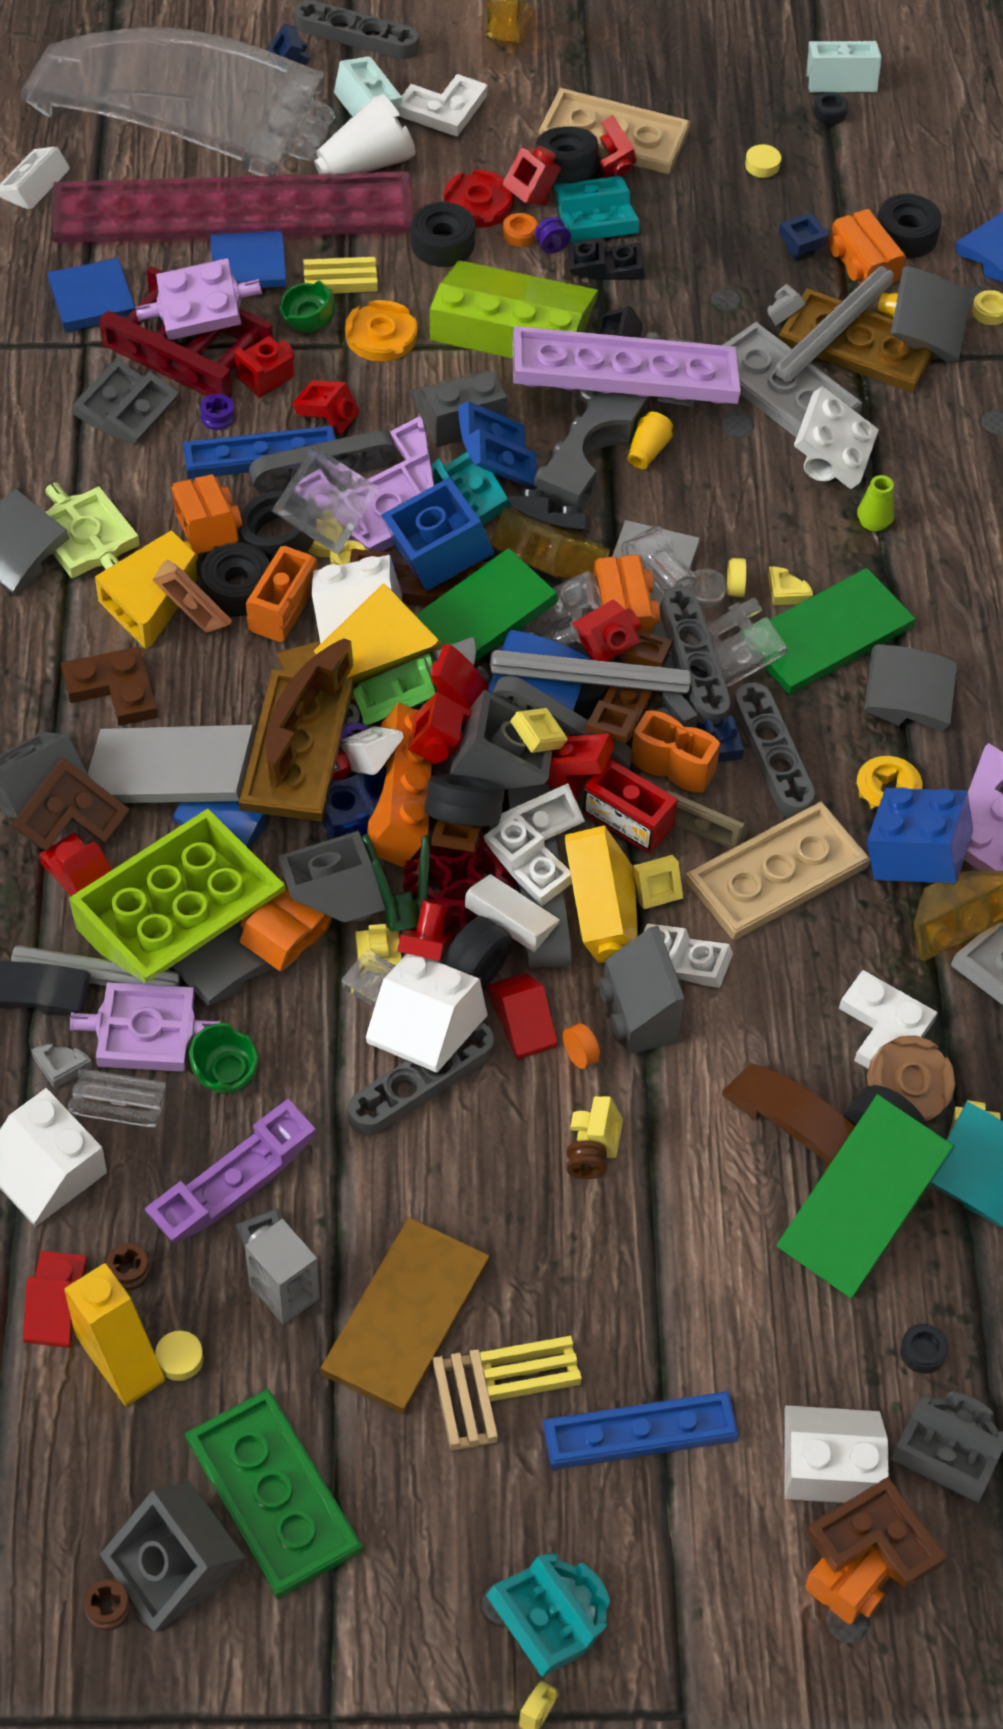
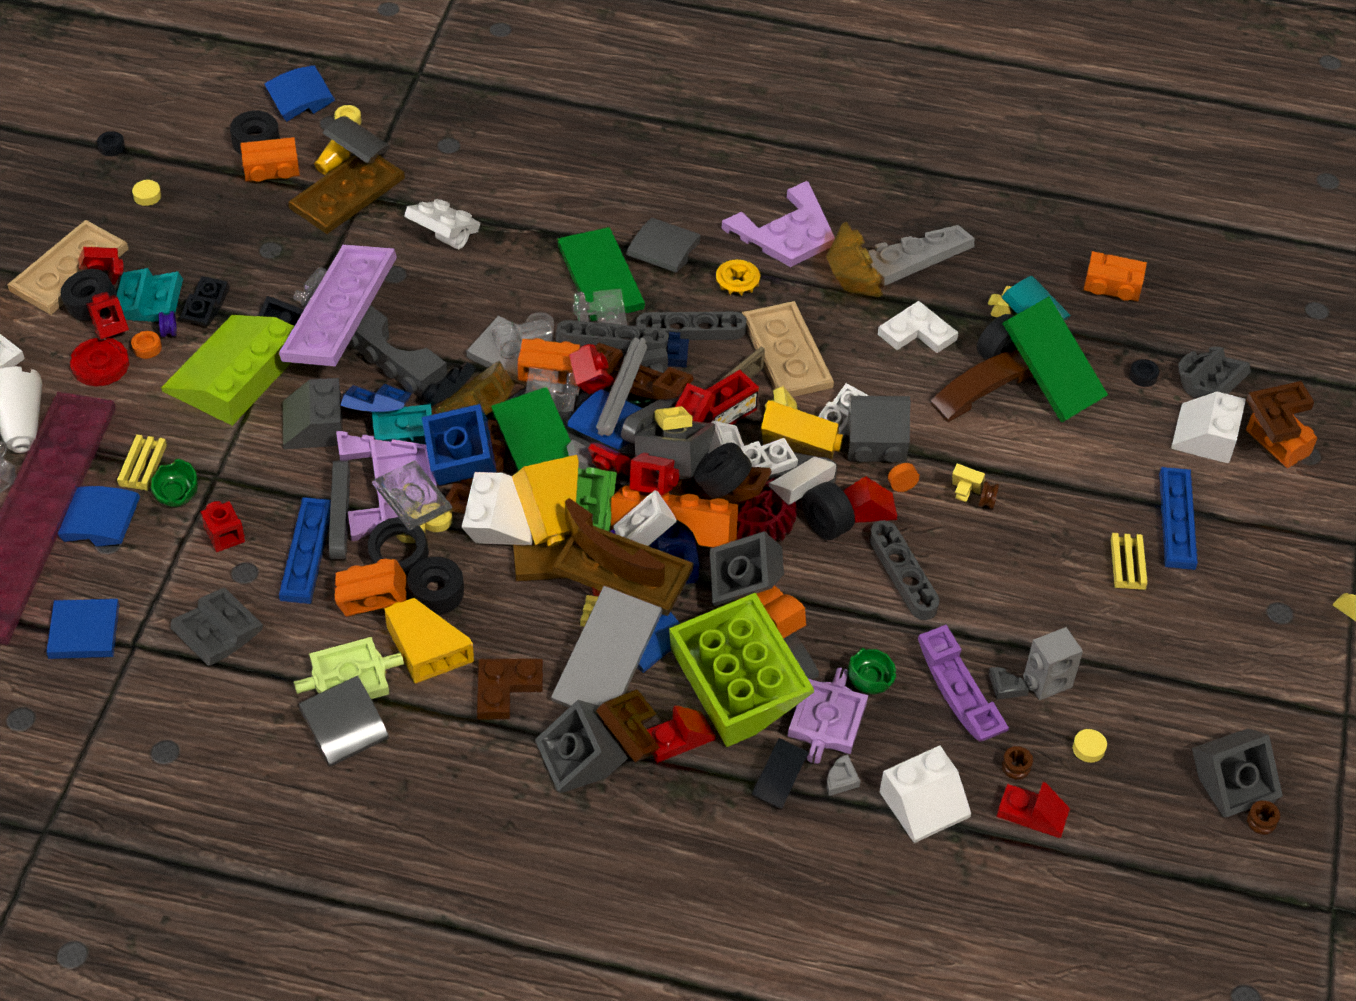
camera: 75 degrees left, 5 degrees down
(100, 969) = (762, 752): light grey axle -> none
(113, 1334) = (1079, 768): yellow slope -> none
(119, 1091) = (888, 725): clear tile -> none
(173, 360) = (179, 590): dark red fence -> none
(190, 597) = (456, 607): nougat slope -> none
(198, 299) = (149, 543): lavender plate -> none
(223, 418) = (255, 576): dark purple bush -> none
(273, 1493) = (1193, 713): green tile -> none
(281, 594) = (472, 553): orange brick -> none
(330, 401) = (278, 495): red bracket -> none
(366, 977) = (827, 574): clear tile -> none
(379, 941) = (796, 572): light yellow tile -> none
(381, 331) = (213, 450): light orange tile -> none
(401, 907) = (780, 533): dark green plant -> none
(405, 1315) = (1096, 624): pearl gold tile -> none
(426, 1011) = (864, 547): white slope -> none
(428, 937) = (806, 532): red tile -> none
(442, 250) = (132, 374): black tyre -> none
(458, 1364) = (1145, 594): tan tile -> none
(552, 1610) = (1295, 583): teal slope -> none
(649, 439) = (398, 319): yellow cone -> none
(675, 751) = (695, 359): orange brick -> none
(736, 577) = (543, 302): light yellow tile -> none
(782, 401) = (380, 230): light grey tile -> none
(787, 303) = (299, 216): light grey tile -> none
(787, 588) = (554, 285): light yellow tile -> none
(803, 235) = (242, 186): dark blue tile -> none
(834, 324) = (337, 192): light grey axle -> none
(843, 66) = (78, 121): light aqua hinge -> none
(877, 506) = (508, 216): lime cone -> none
(916, 1072) = (963, 323): medium nougat tile -> none
(920, 835) = (797, 263): blue brick -> none

